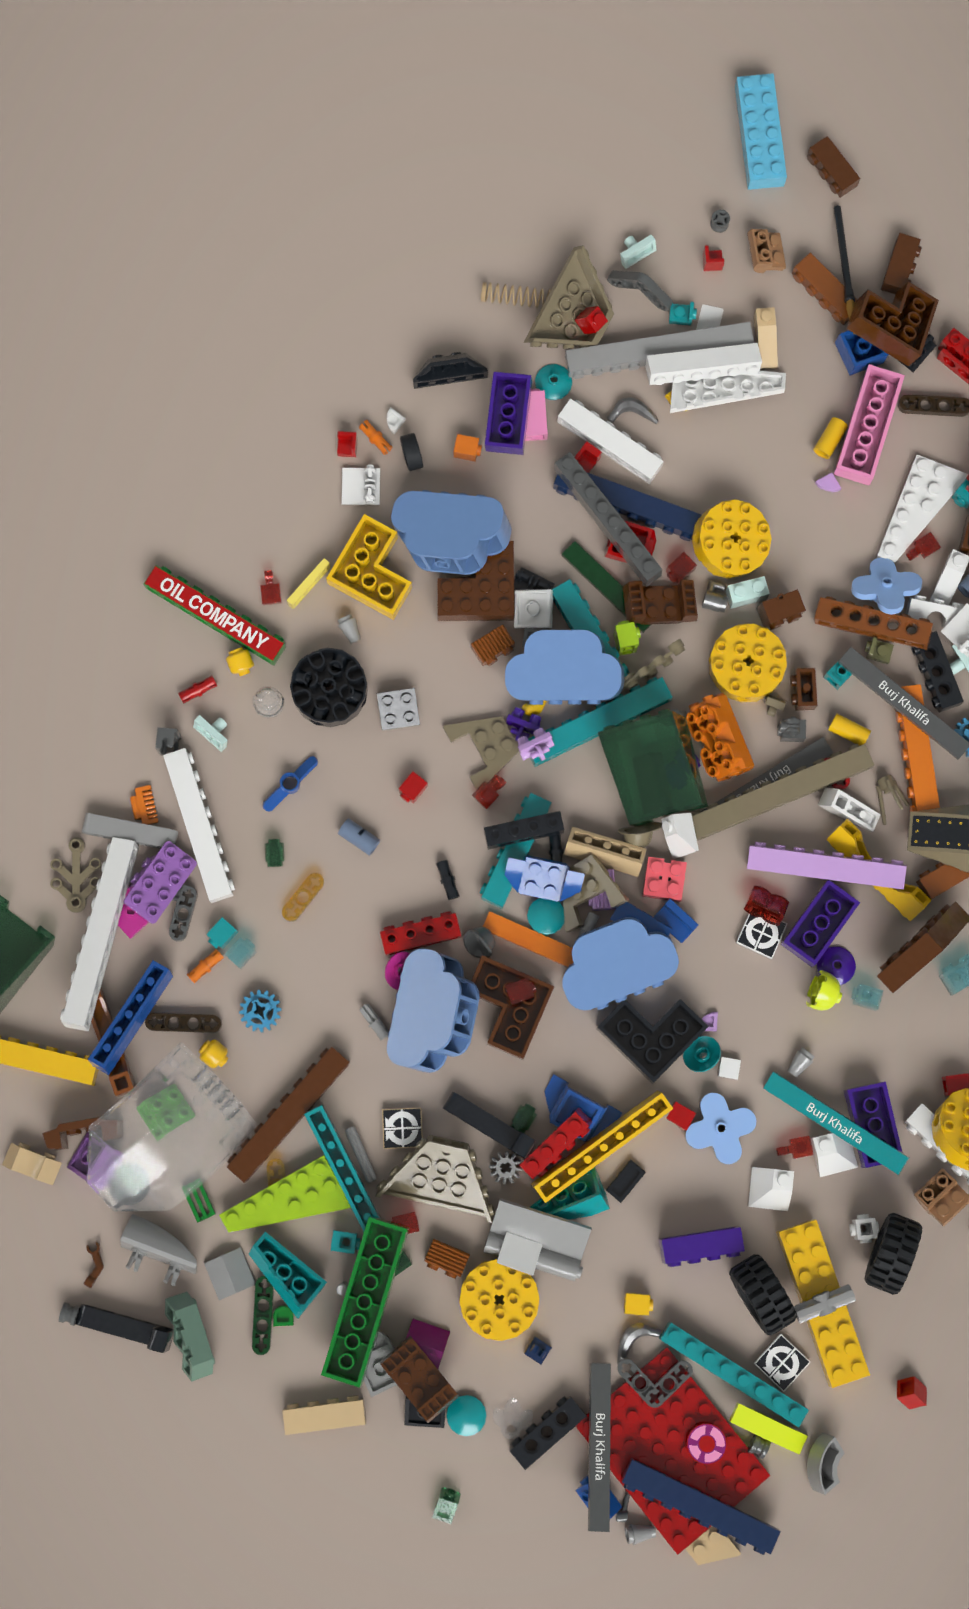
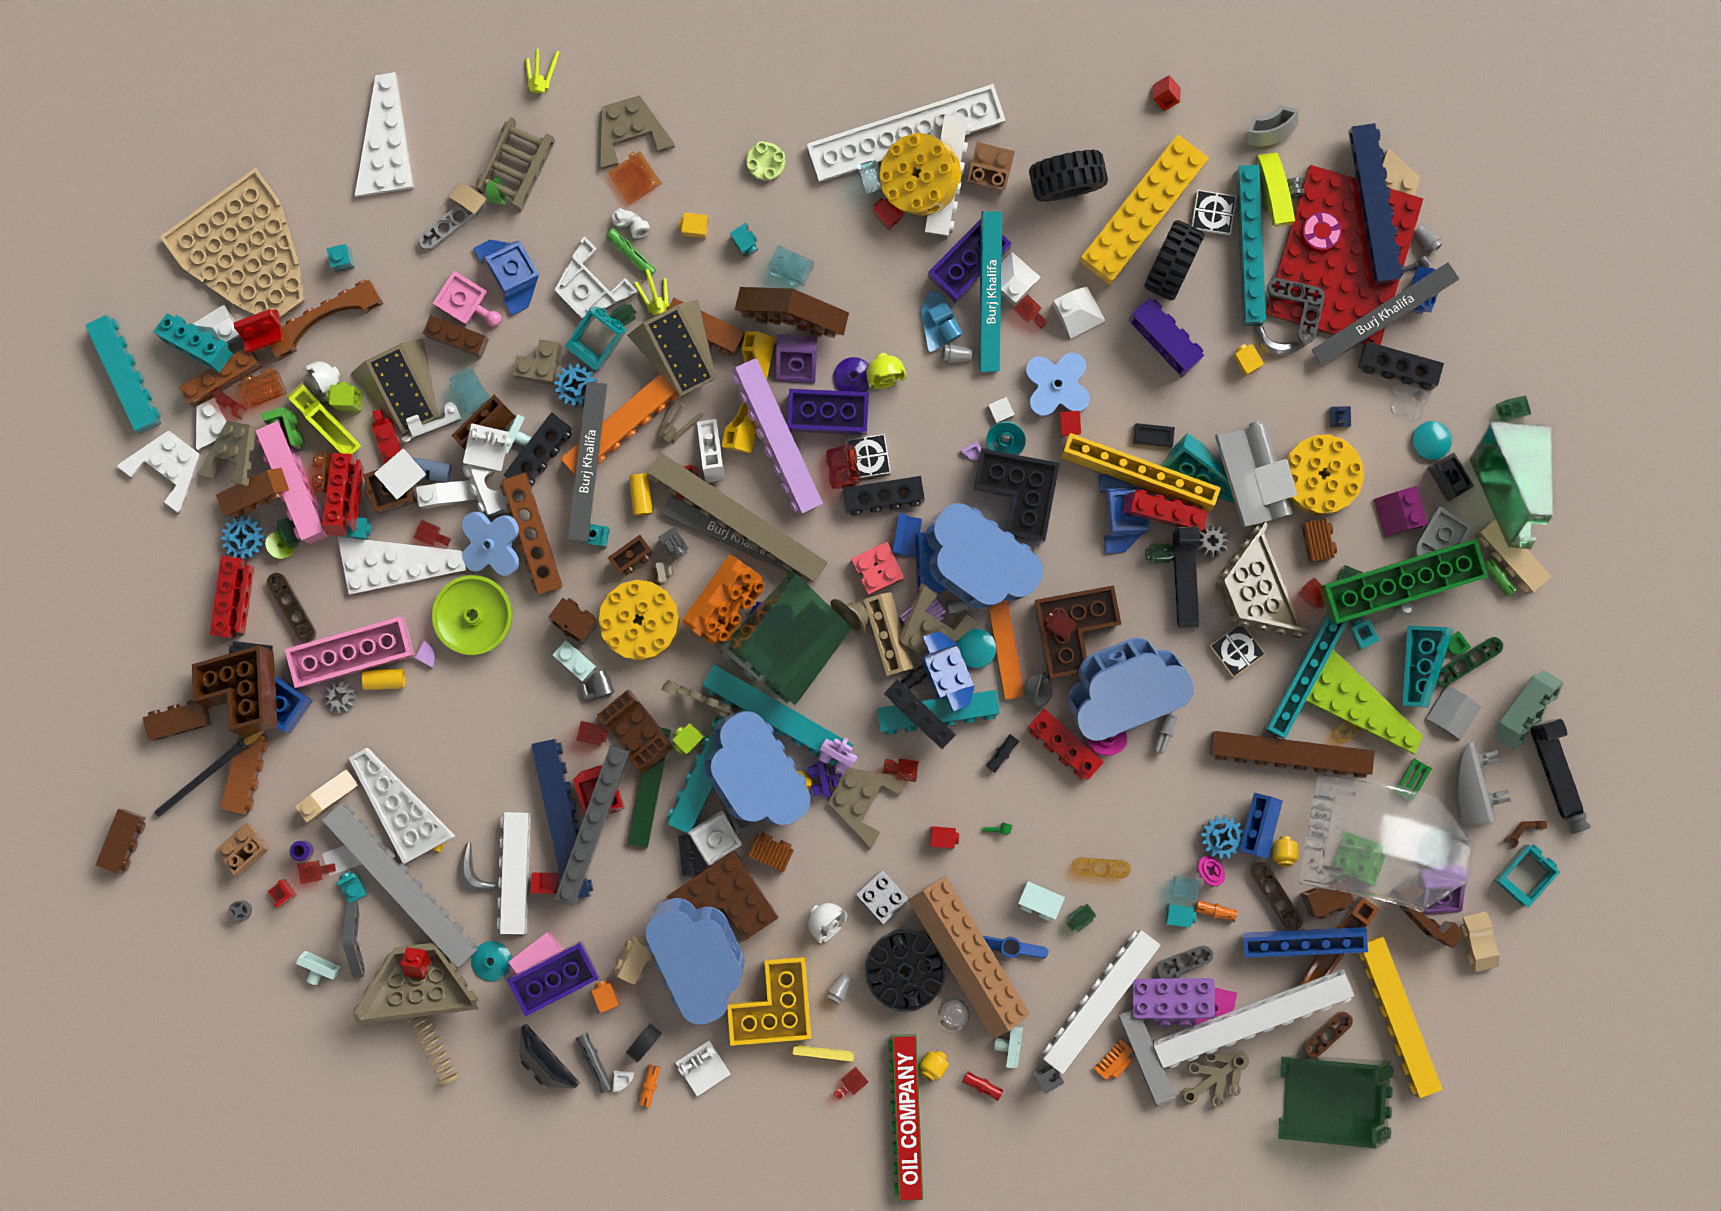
camera: 120 degrees left, 5 degrees up
(50, 973) = (1336, 1035): none -> reddish brown beam
(71, 1260) = (1548, 864): none -> teal window
(151, 1054) = (1323, 901): none -> reddish brown brick
(236, 988) = (1217, 871): none -> dark pink gear
(247, 1047) = (1261, 825): none -> blue brick
(304, 742) = (969, 957): none -> medium nougat brick
(310, 830) = (1040, 900): none -> light aqua brick
(314, 1392) = (1500, 577): none -> bright green pin
(347, 444) = (673, 1106): red panel -> none
(358, 836) = (1017, 854): sand blue pin -> none
(360, 1154) = (1282, 670): light grey axle -> none
(385, 841) = (1004, 829): none -> green hand
(388, 1458) = (1516, 477): none -> clear green windscreen
(409, 651) = (825, 921): none -> white cylinder
(419, 1379) = (1434, 495): reddish brown plate -> none
(422, 407) = (594, 1063): none -> dark grey pin
(478, 481) = (633, 960): none -> tan brick
(680, 834) = (832, 579): white slope -> none
(703, 364) = (390, 835): white brick -> none
(713, 292) = (313, 871): none -> clear red plate
(736, 292) = (295, 850): none -> dark purple brick
(737, 555) = (533, 686): yellow brick -> none
(738, 898) = (912, 484): none -> black brick
(760, 131) = (128, 930): medium azure brick -> none
(824, 1303) = (1147, 206): light grey piece -> none
(831, 401) = (348, 699): none -> light grey gear
(837, 536) = (472, 615): none -> lime dish
(837, 1066) = (938, 321): none -> dark azure panel
(867, 997) = (864, 333): clear light blue brick -> none
(871, 1231) = (1064, 208): white brick -> none
(878, 650) = (551, 514): olive bracket -> none
(882, 928) = (796, 358): none -> medium lavender slope

